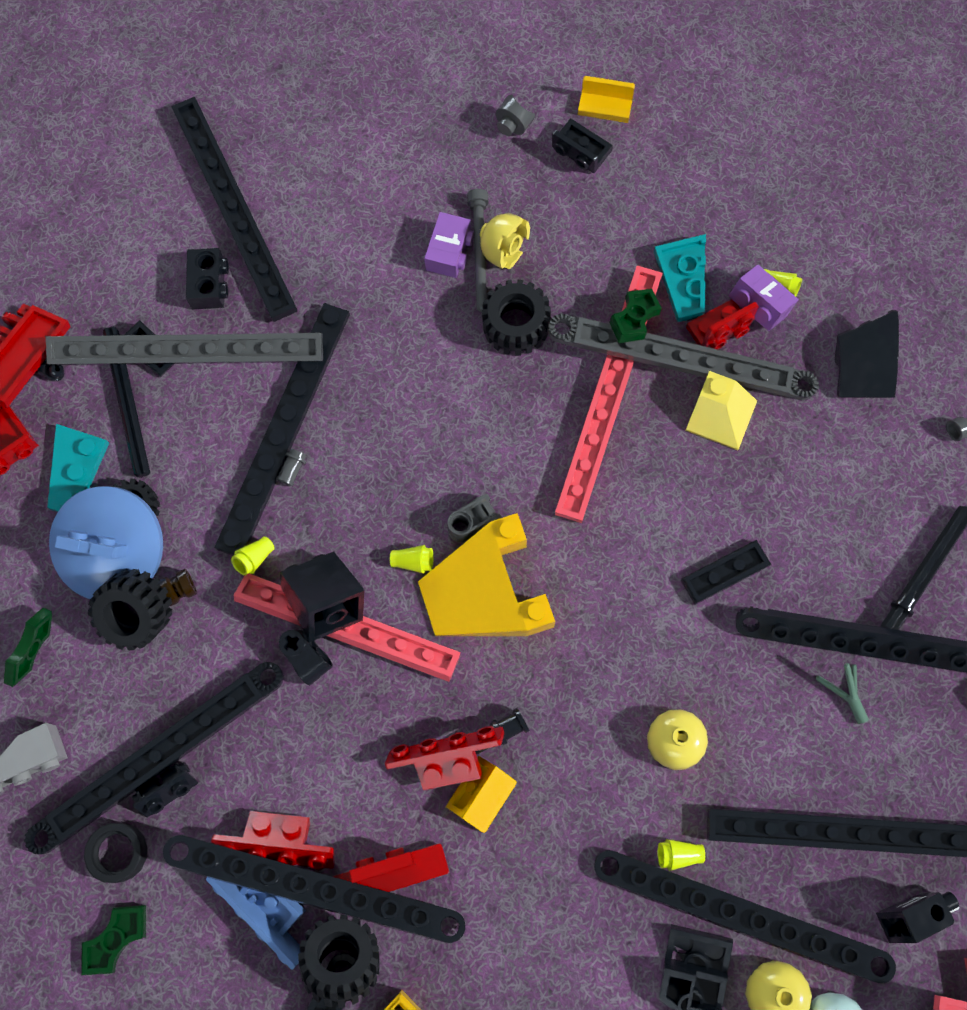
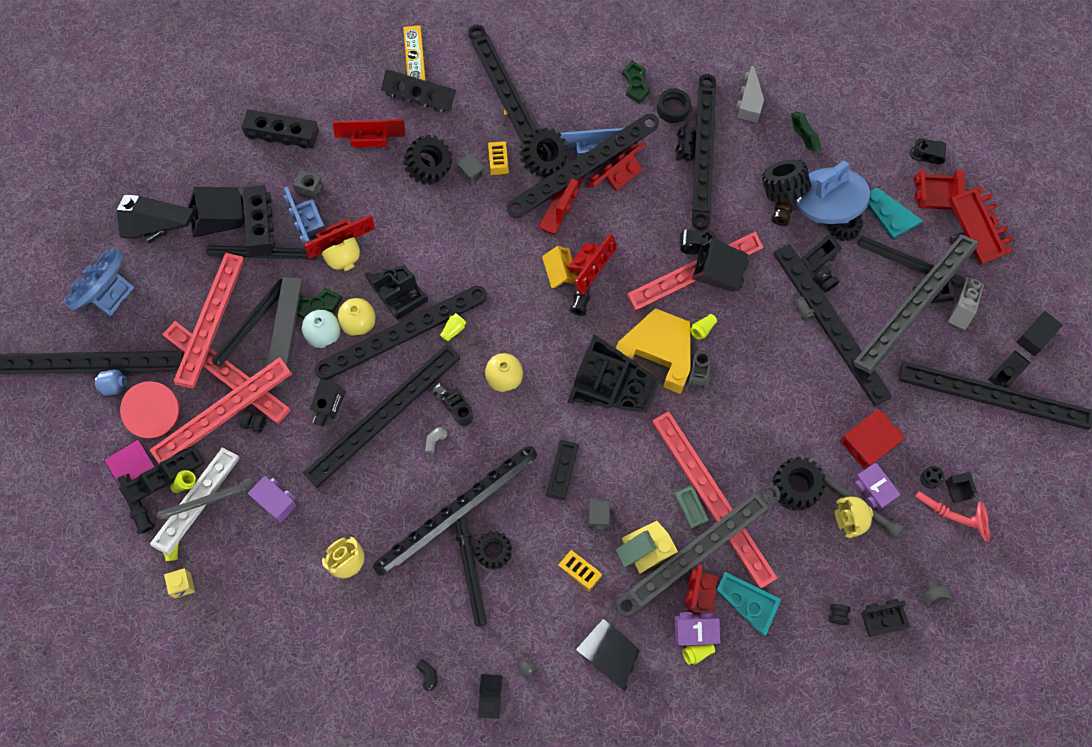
camera: 125 degrees right, 5 degrees down
(115, 207) = (1039, 333): none -> black panel
(143, 302) = (966, 303): none -> light grey slope
(191, 209) = (1009, 370): none -> black slope
(200, 497) = (822, 253): none -> black slope
(201, 279) = (958, 344): black brick -> none
(231, 470) = (826, 279): none -> black wheel
(250, 557) = (769, 254): neon yellow cone -> none
(372, 171) = (961, 487): none -> black panel
(384, 197) = (935, 474): none -> black wheel
(395, 283) = (872, 439): none -> red panel
(414, 169) = (979, 521): none -> coral dish
(579, 602) = (612, 379): none -> black wedge
(606, 99) = (905, 661): yellow panel -> none
(617, 186) = (839, 614): none -> black wheel
(630, 323) = (742, 533): dark green tile -> none
(638, 406) = (691, 507): none -> sand green tile
(741, 487) = (599, 515): none -> dark grey brick
(742, 417) = (636, 548): none -> sand green tile
(769, 755) = (456, 405): none -> black piece
(770, 793) = (439, 390): none -> dark grey hinge
(823, 447) = (575, 575): none -> yellow slope
(828, 748) = (435, 435): none -> light grey arm
(852, 699) = (446, 470): sand green plant -> none
(895, 553) = (484, 541): none -> black tyre

